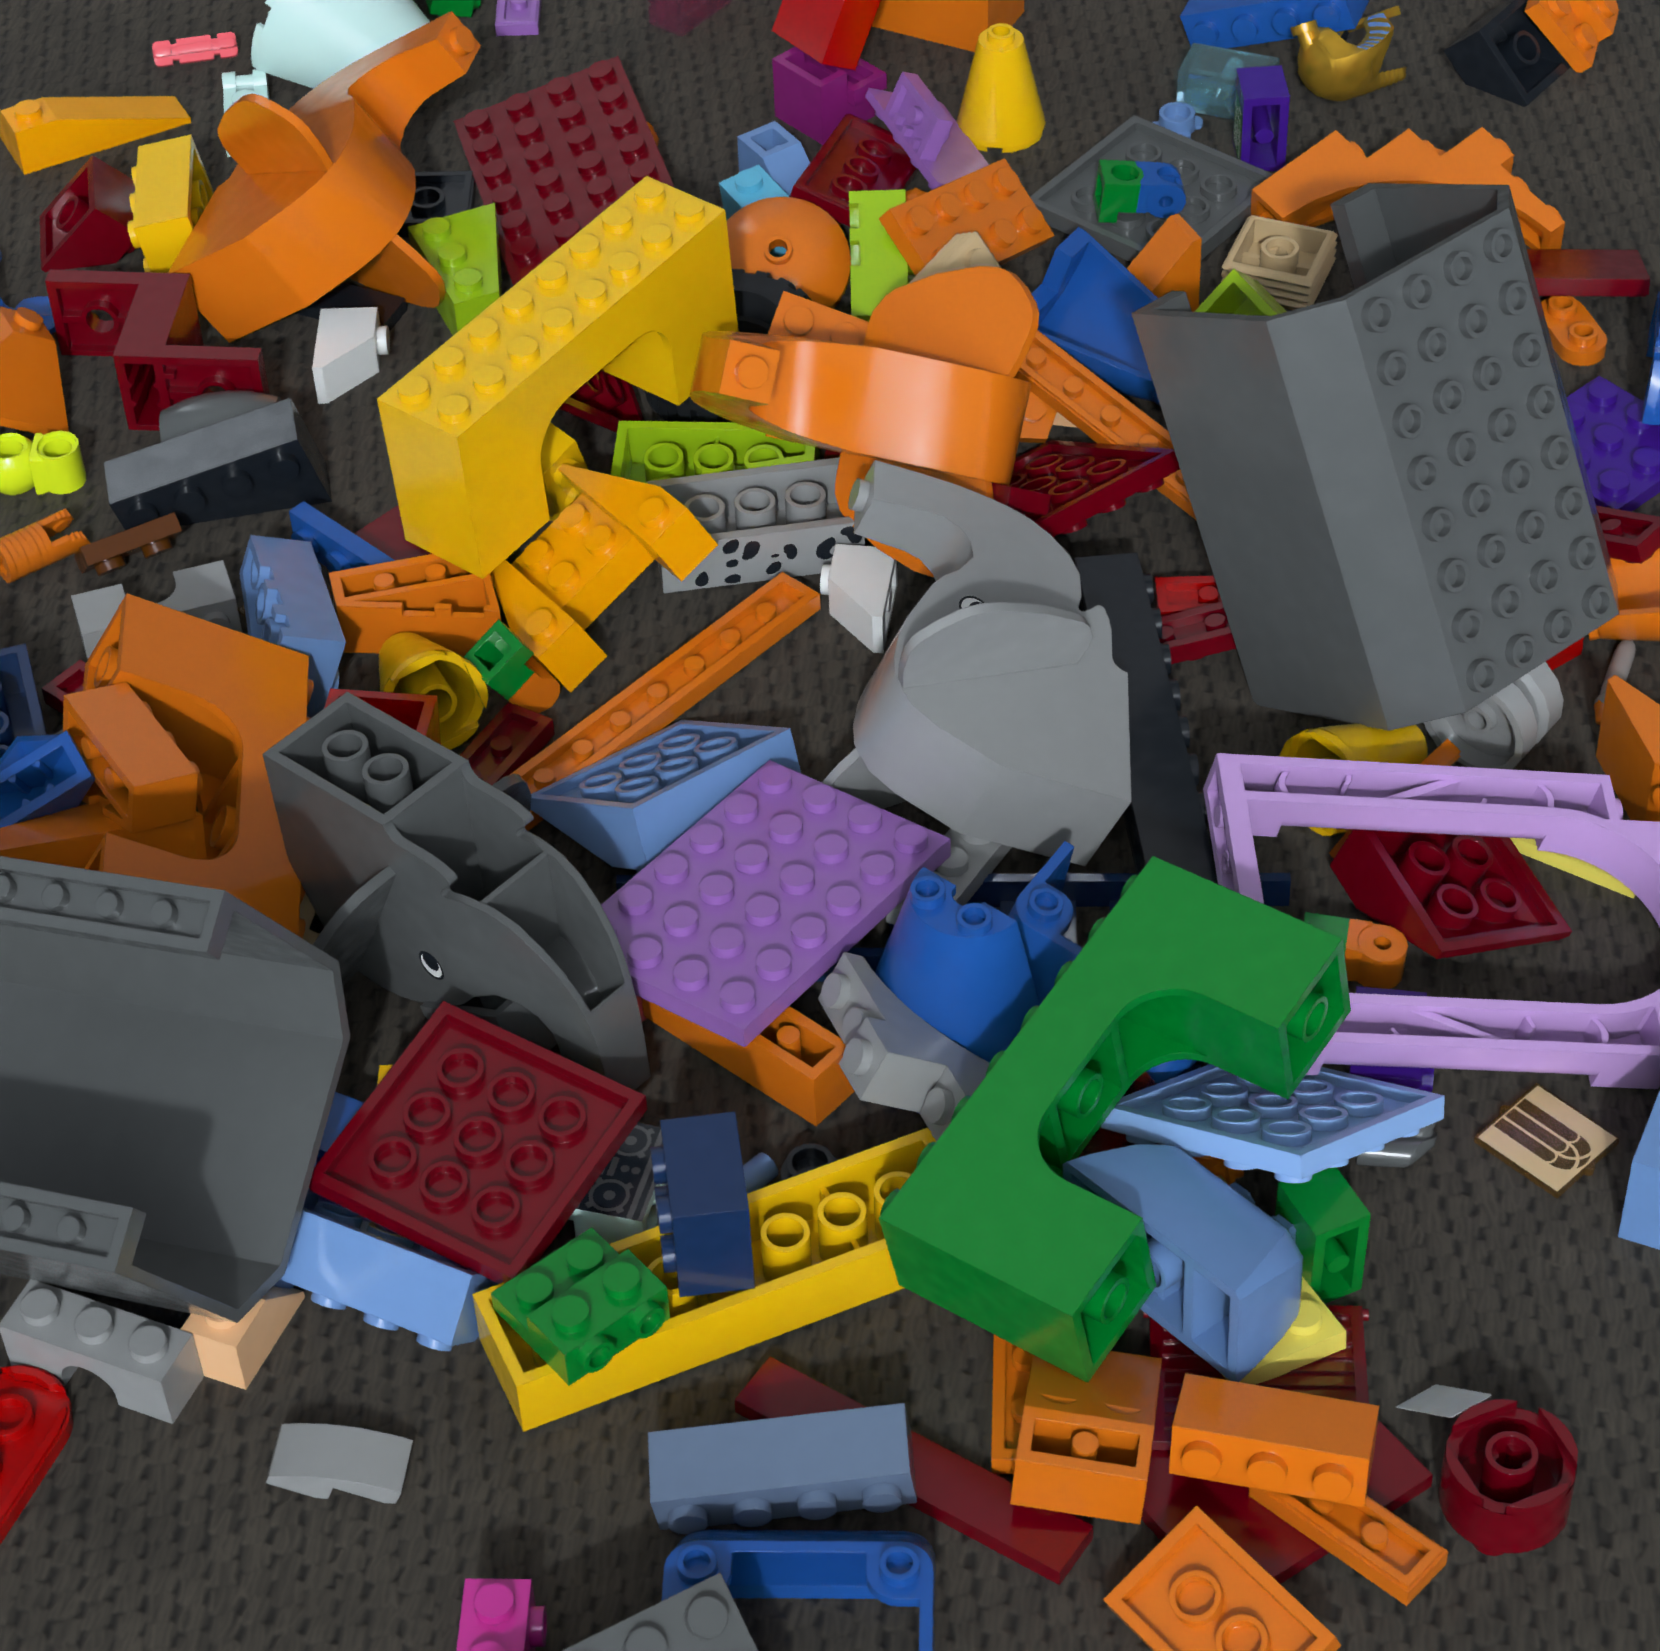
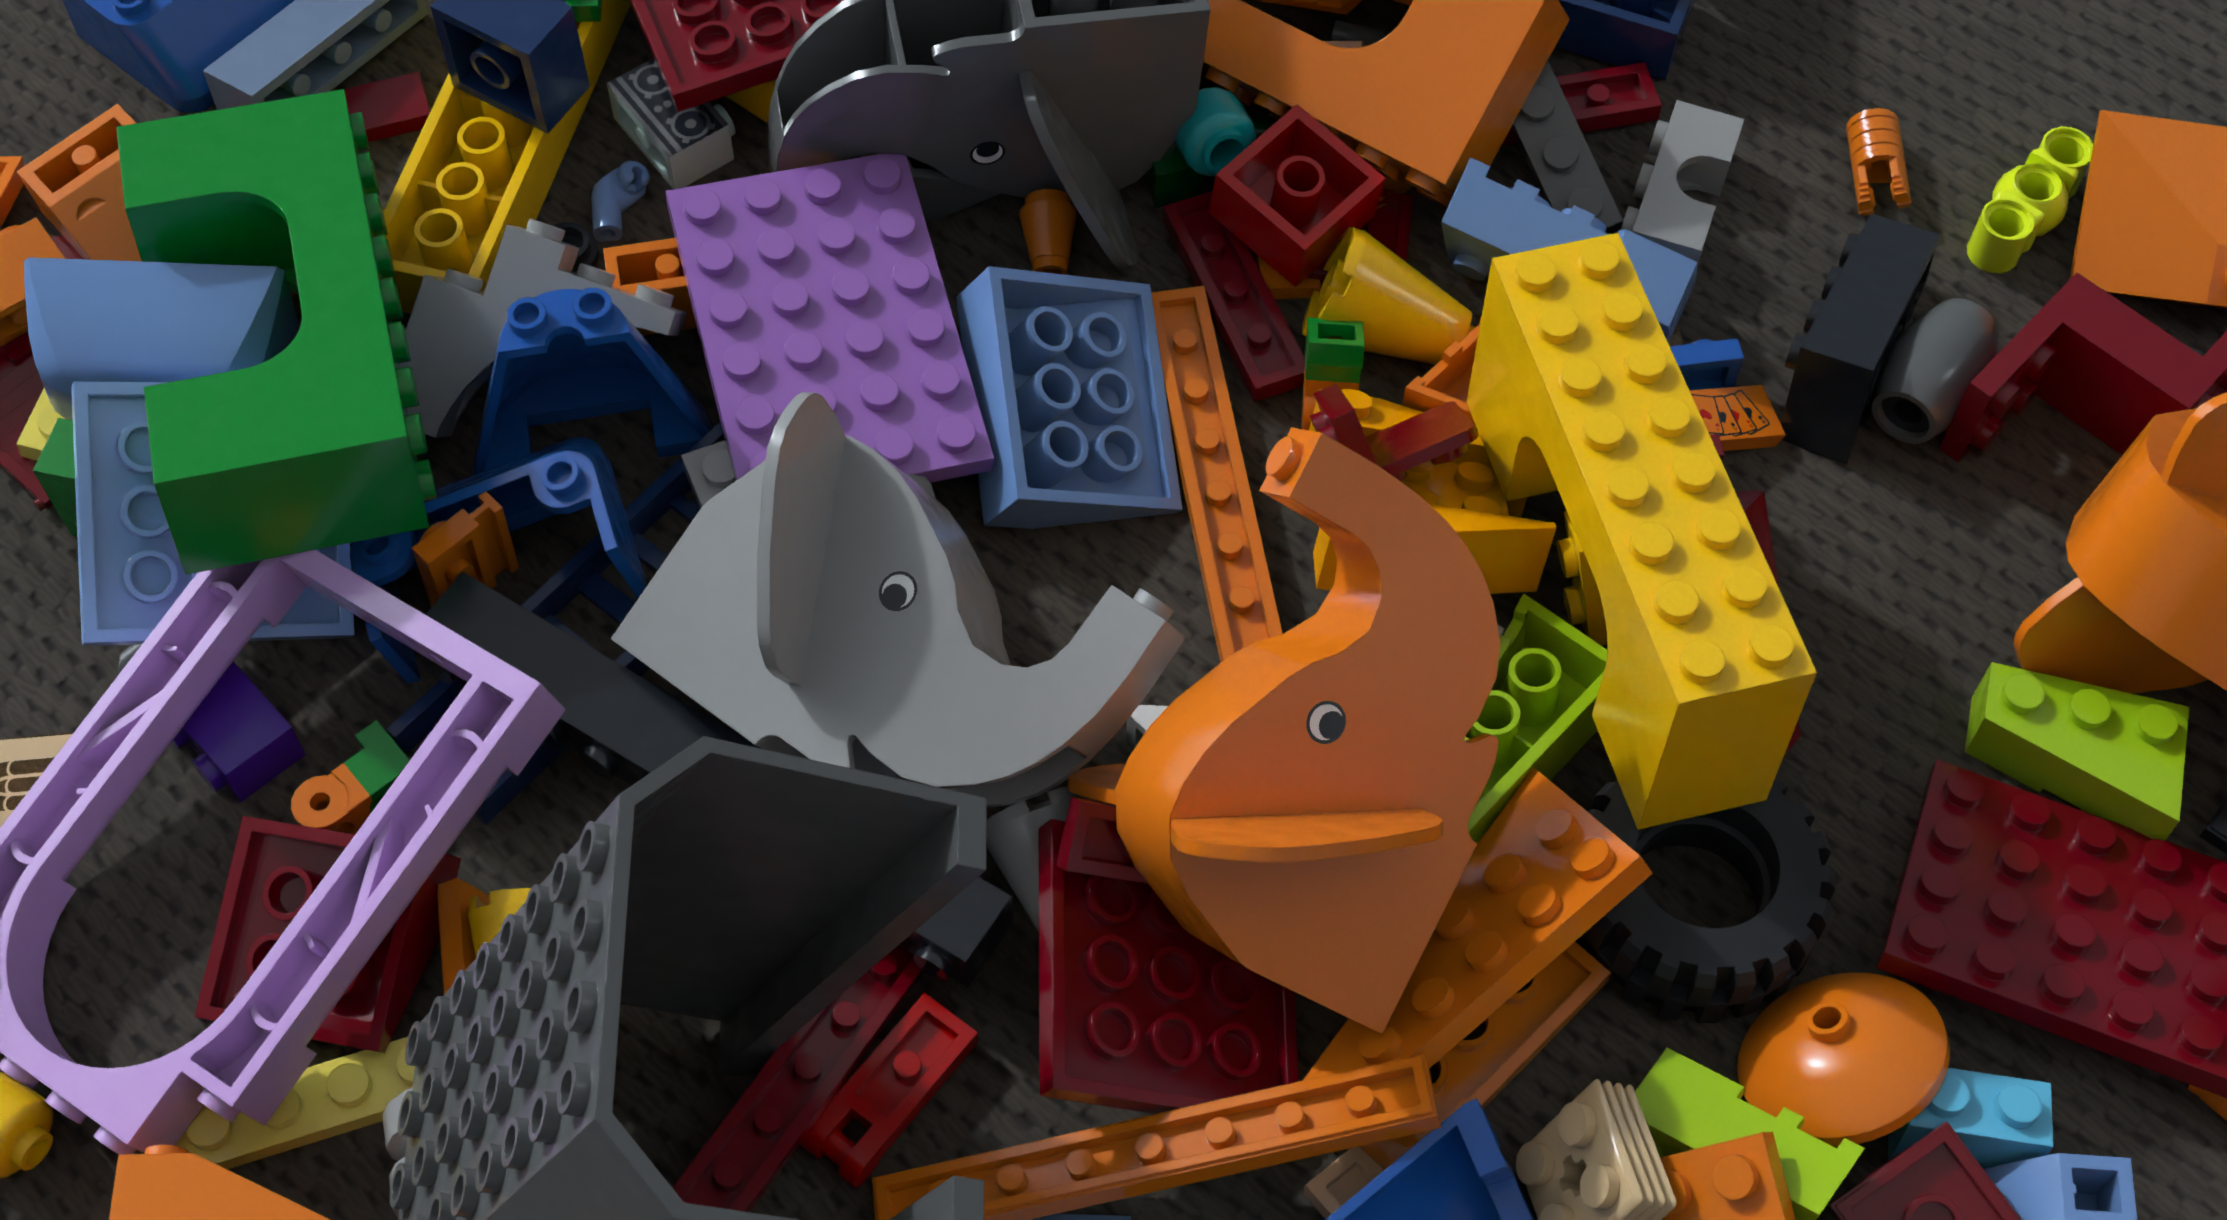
camera: 125 degrees right, 15 degrees up
(109, 553) = (1819, 222): reddish brown plate -> none
(347, 350) = (2012, 556): white slope -> none
(360, 510) = (1739, 416): none -> orange tile
(569, 549) = (1432, 435): none -> dark red bracket

